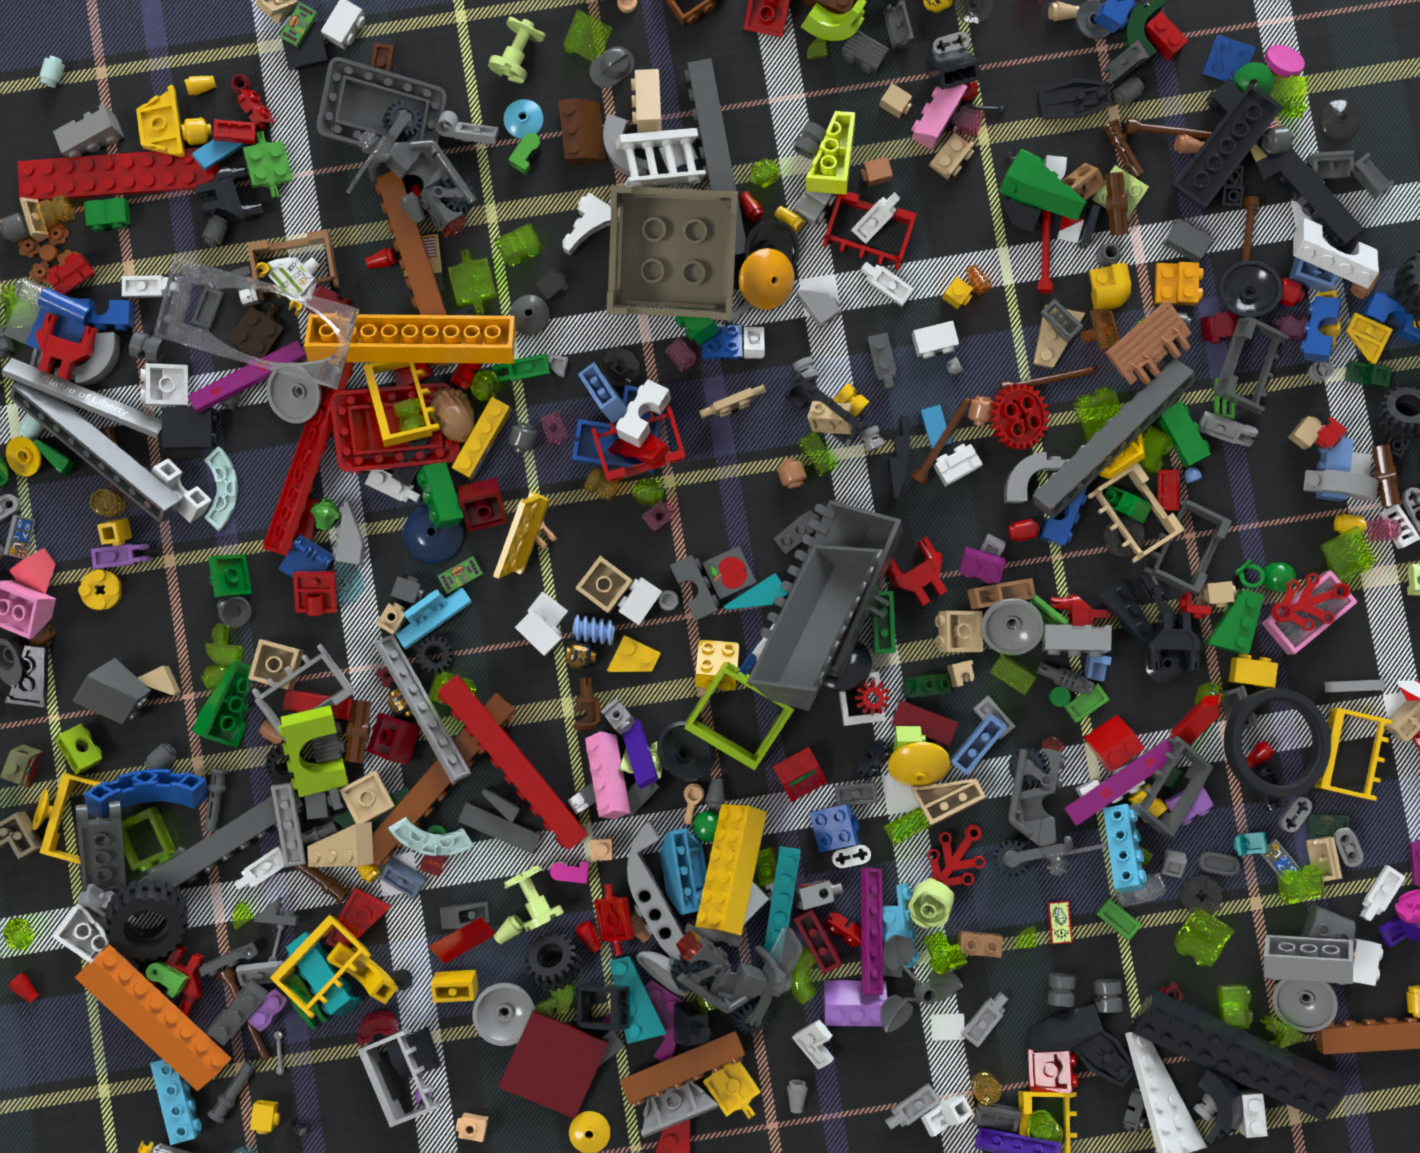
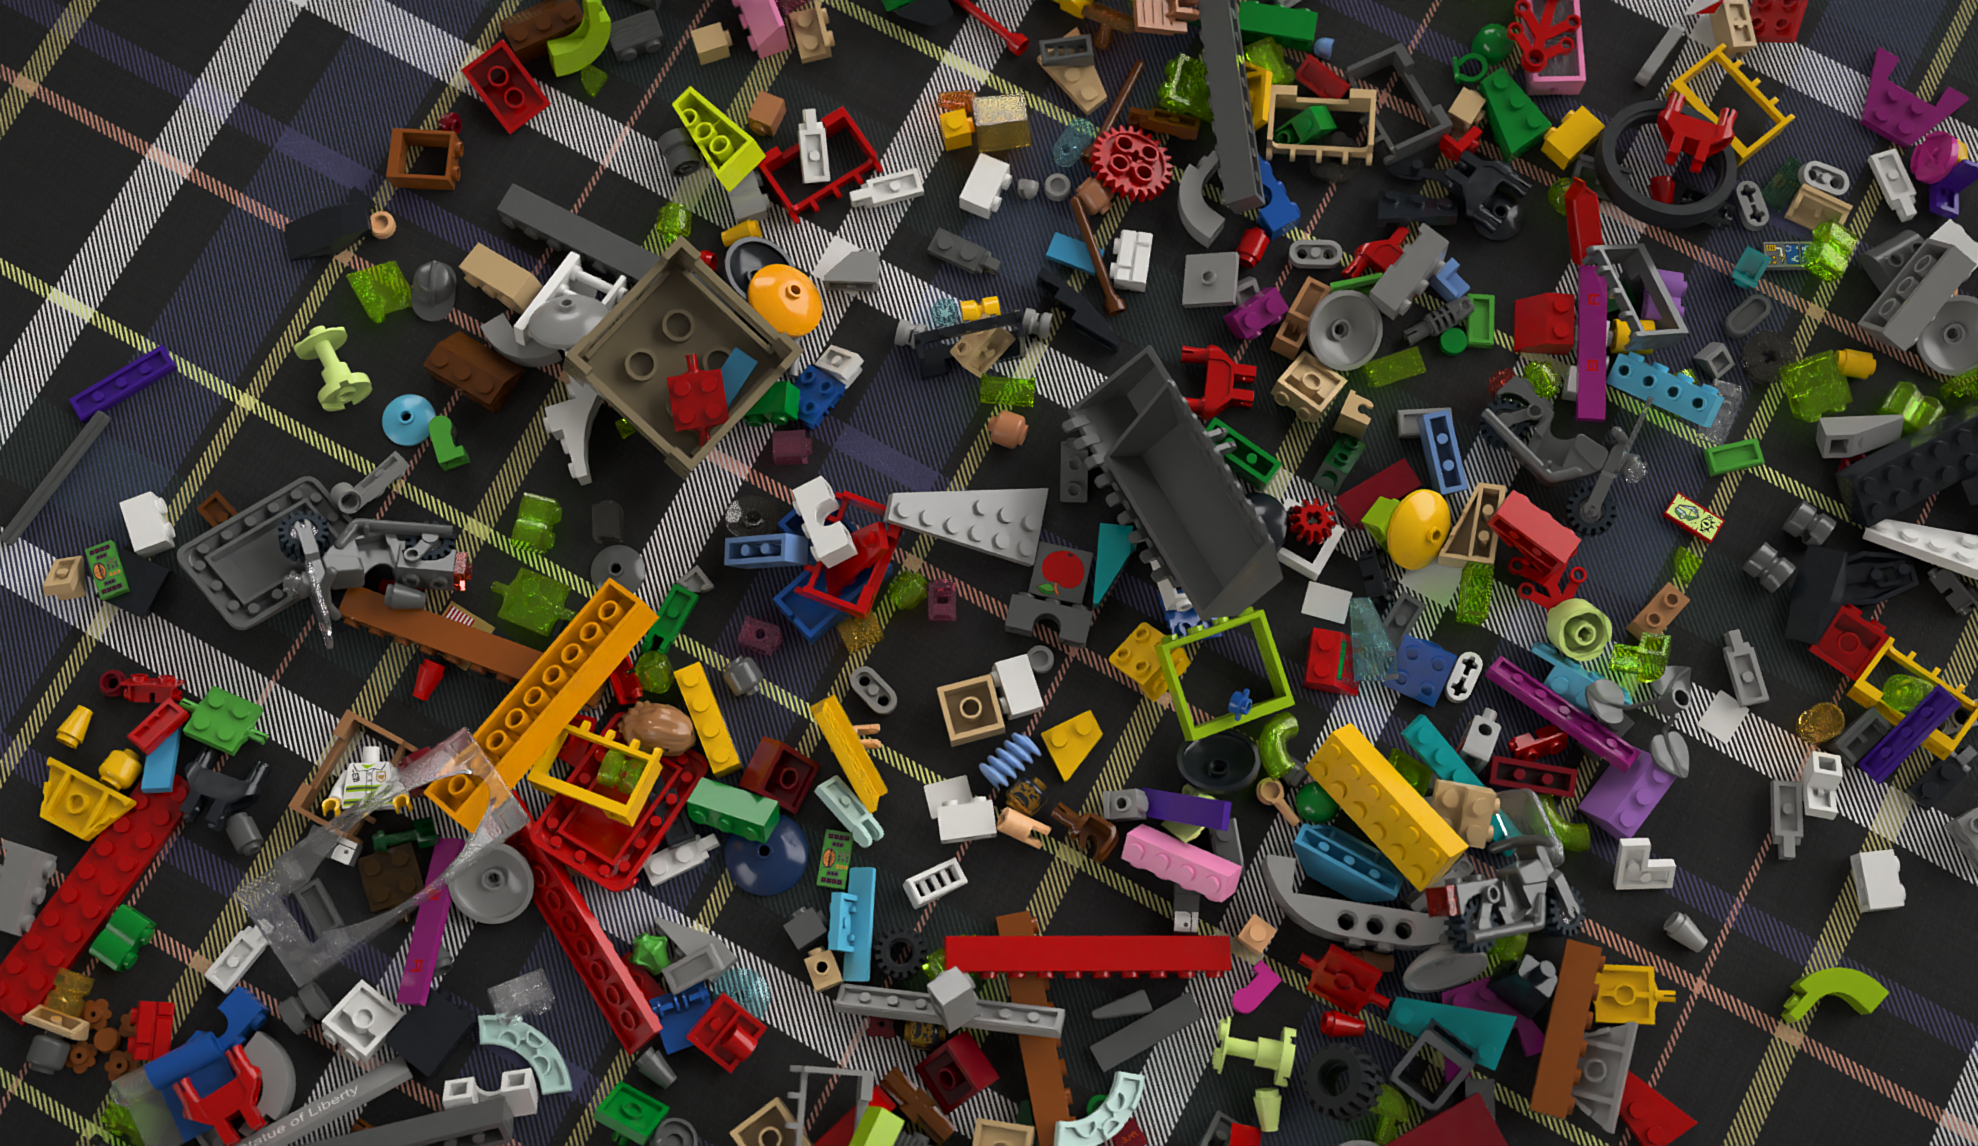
camera: 50 degrees left, 10 degrees down
(245, 461) = (521, 997): none -> clear brick
(266, 568) = (656, 1068): none -> dark grey cone
(293, 330) = (423, 832): none -> dark green hinge
(333, 545) = (693, 969): none -> light grey tile
(426, 706) = (953, 998): none -> light grey brick
(475, 634) = (913, 894): none -> white slope
(492, 553) = (849, 811): none -> light aqua hinge
(558, 666) = (1020, 826): none -> light nougat hinge
(573, 519) = (874, 690): none -> light grey plate
(647, 164) = (566, 320): none -> light grey dish
(659, 280) = (698, 400): none -> red plate
(689, 288) = (736, 373): none -> dark azure tile
(720, 775) = (1273, 745): none -> clear neon green cylinder
(723, 505) = (988, 521): none -> light grey wing
(726, 739) = (1240, 704): none -> blue plate
(739, 400) = (889, 422): tan plate -> none
(764, 917) = (1466, 810): none -> tan plate
(825, 789) = (1372, 648): none -> clear light blue slope
(835, 741) = (1326, 602): none -> white sticker
(837, 378) = (945, 312): none -> clear light blue tile
(967, 835) = (1534, 534): none -> wedge
(970, 383) = (1057, 187): none -> light grey tile
(982, 317) = (1001, 122): none -> clear yellow slope
(982, 521) = (1210, 279): none -> light grey plate
(1007, 369) = (1074, 141): none -> clear light blue plate
(1052, 569) = (1314, 254): none -> light grey plate
(1064, 415) = (1164, 121): none -> reddish brown hinge
(1075, 768) = (1543, 378): none -> clear neon green head
(1189, 984) = (1856, 434): none -> light grey slope
(1237, 951) = (1855, 363): none -> yellow brick
(1308, 746) = (1692, 134): none -> red connector

